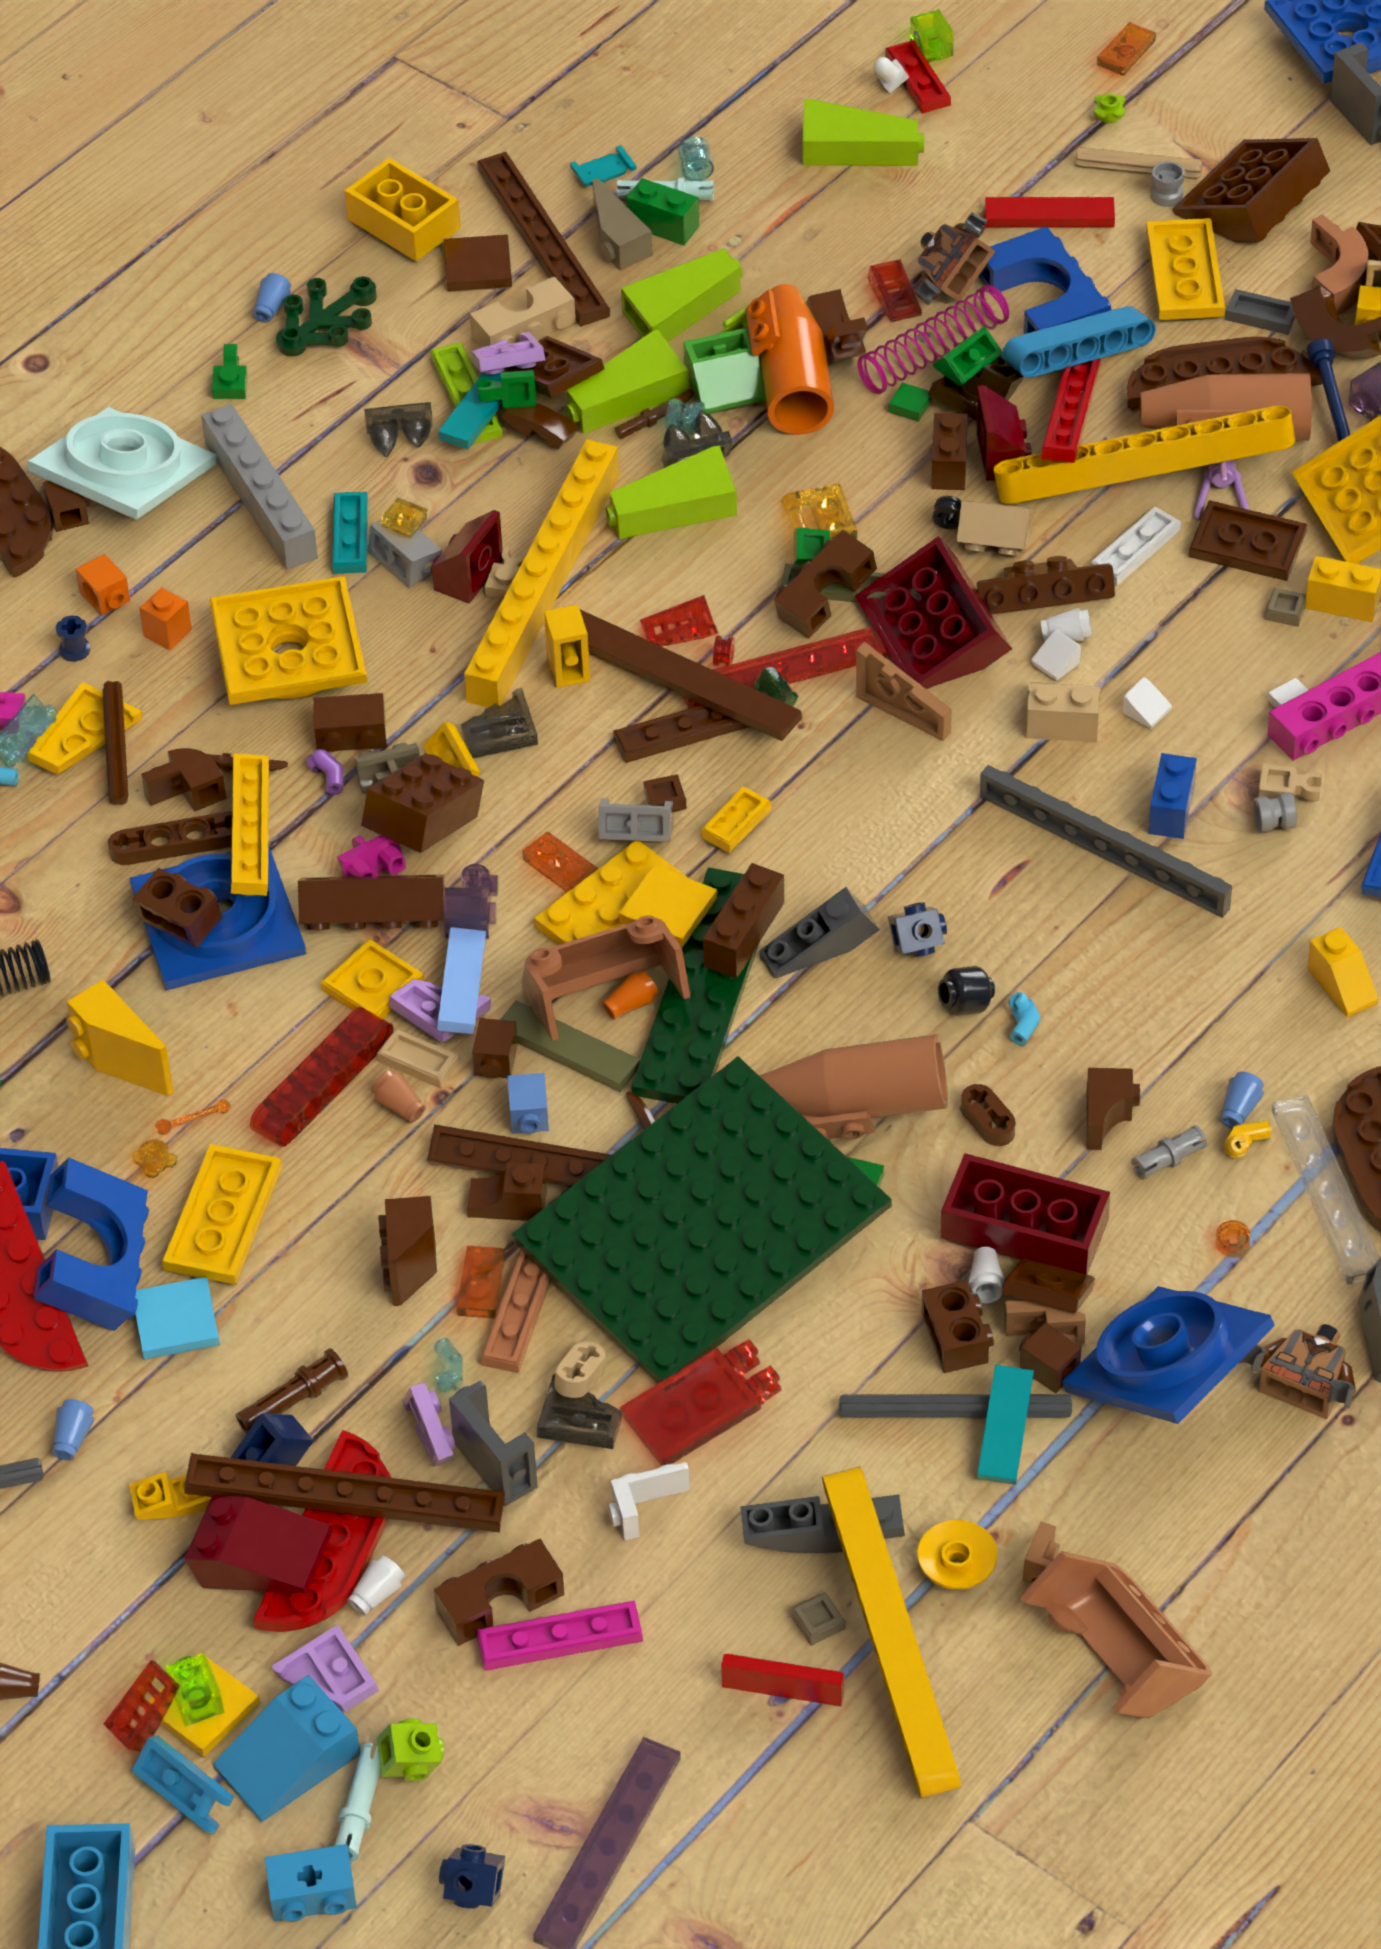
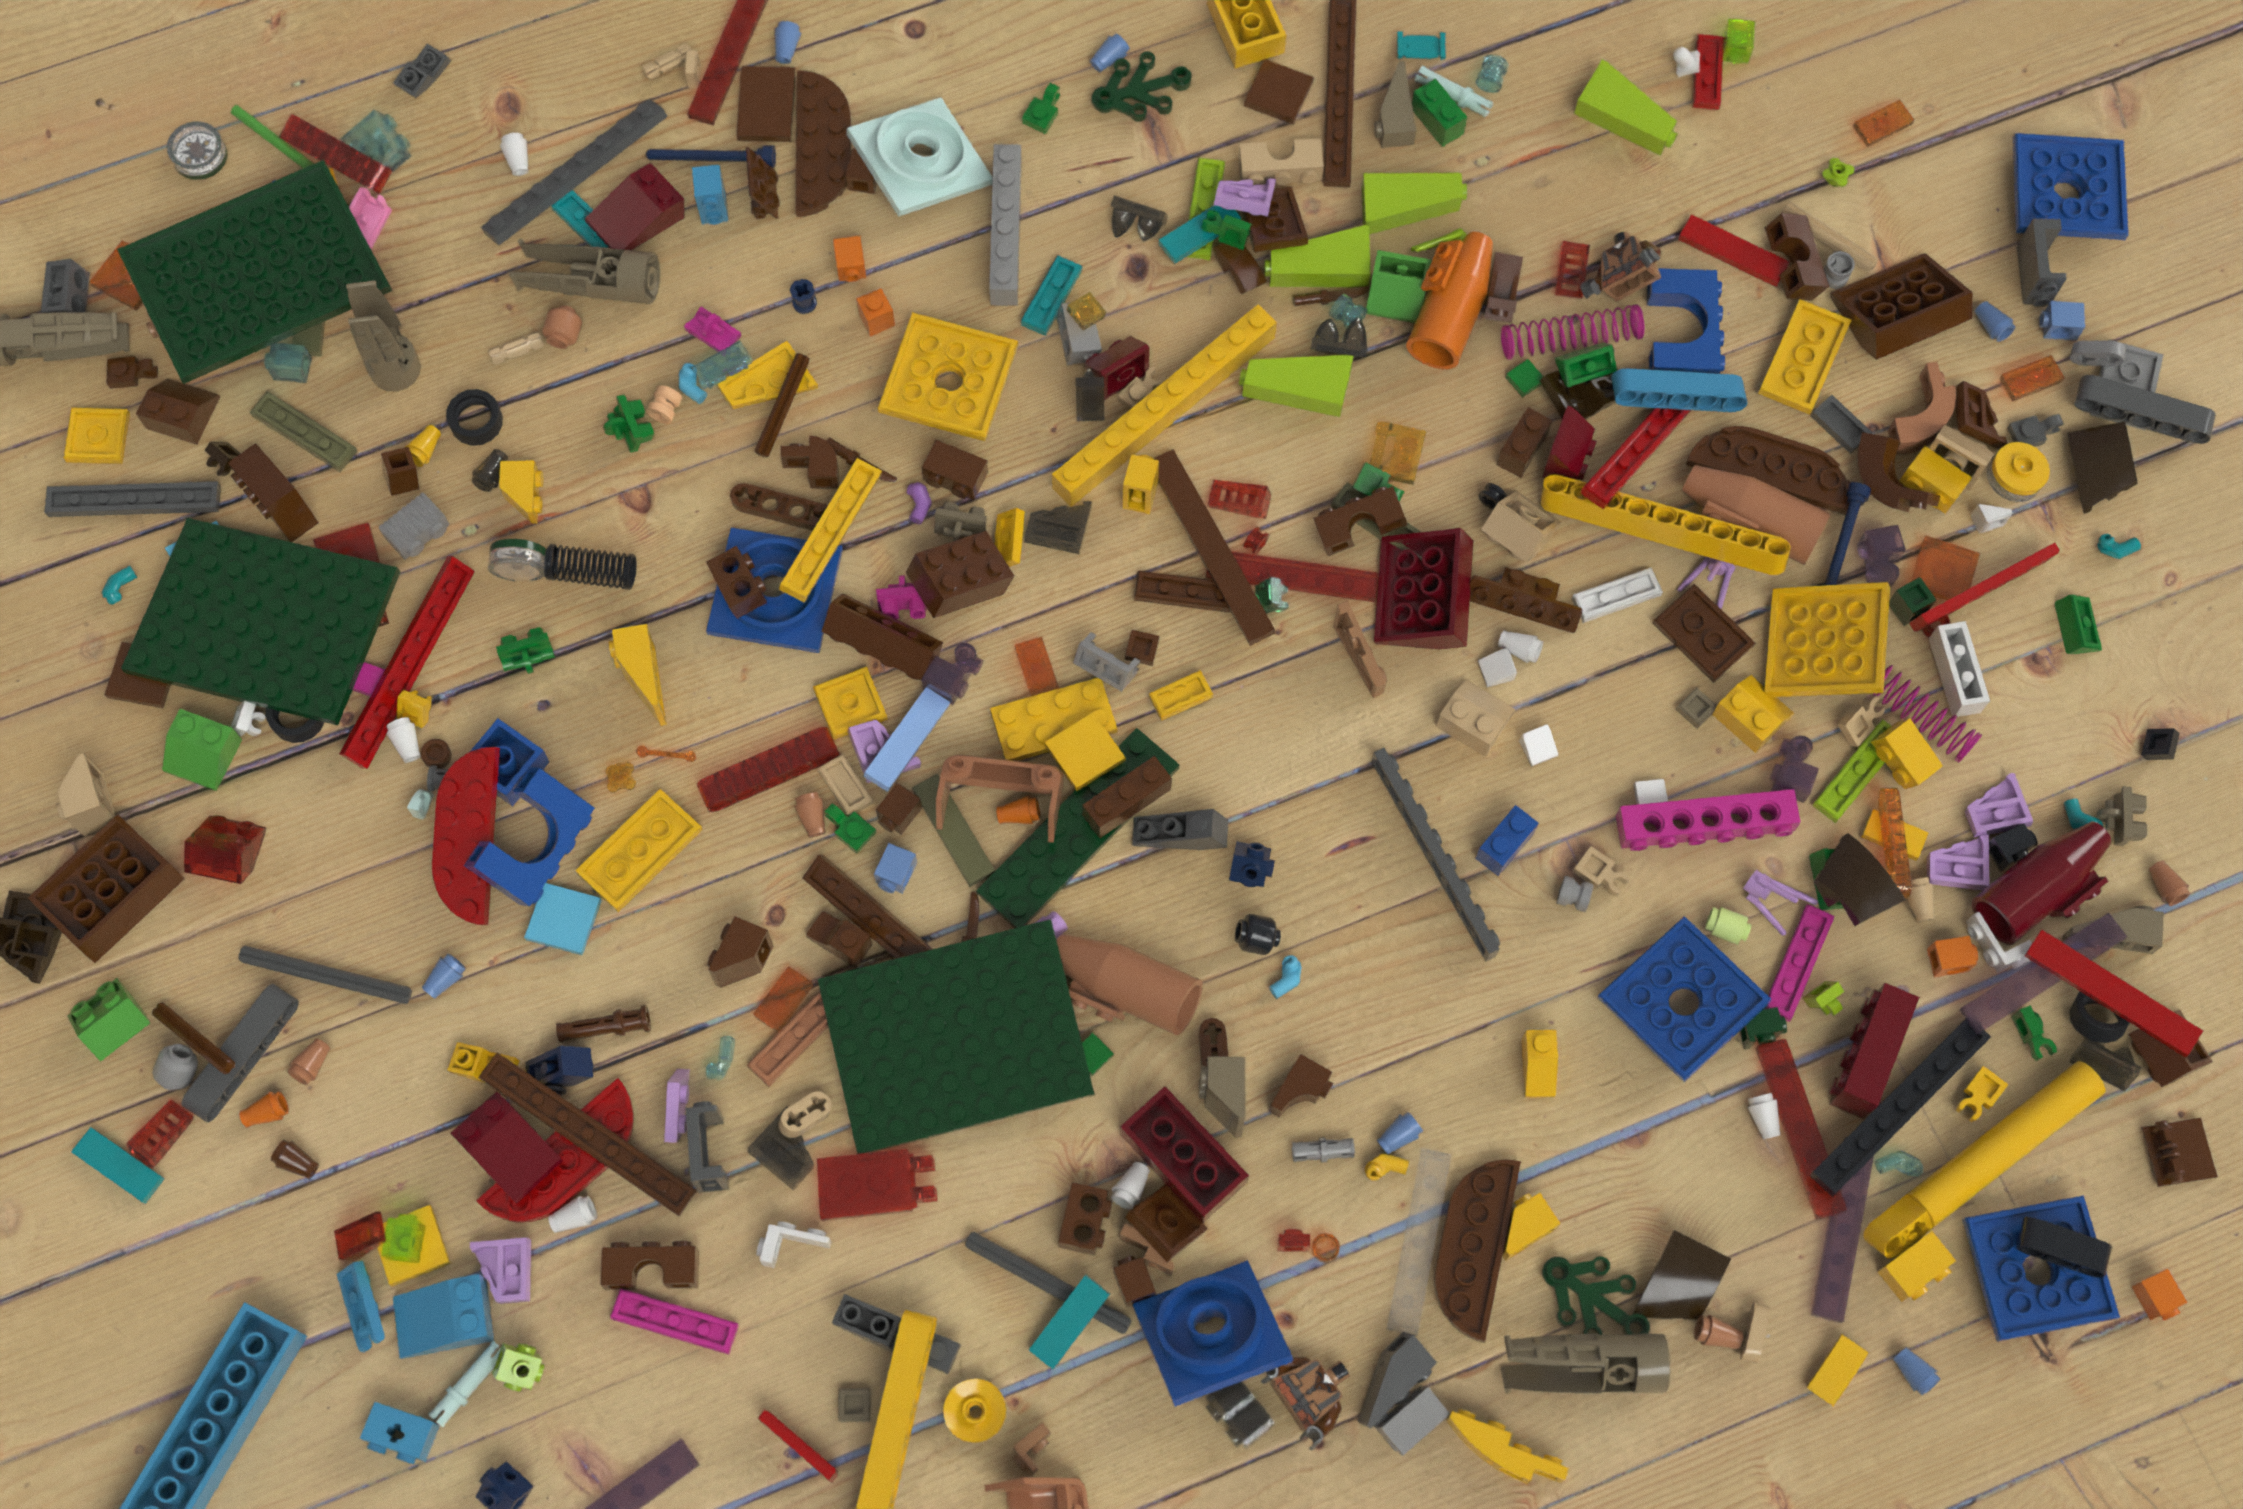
camera: 25 degrees right, 20 degrees up
(452, 1095) = (852, 830): none -> green plate
(459, 593) = (1090, 397): none -> clear smoke tile
(1035, 1125) = (1224, 1091): none -> dark tan slope
(1106, 174) = (1794, 238): none -> reddish brown arch
(1196, 1245) = (1293, 1241): none -> clear red plate
(1245, 1421) = (1240, 1413): none -> clear smoke brick
(1354, 165) = (1995, 322): none -> medium blue cone

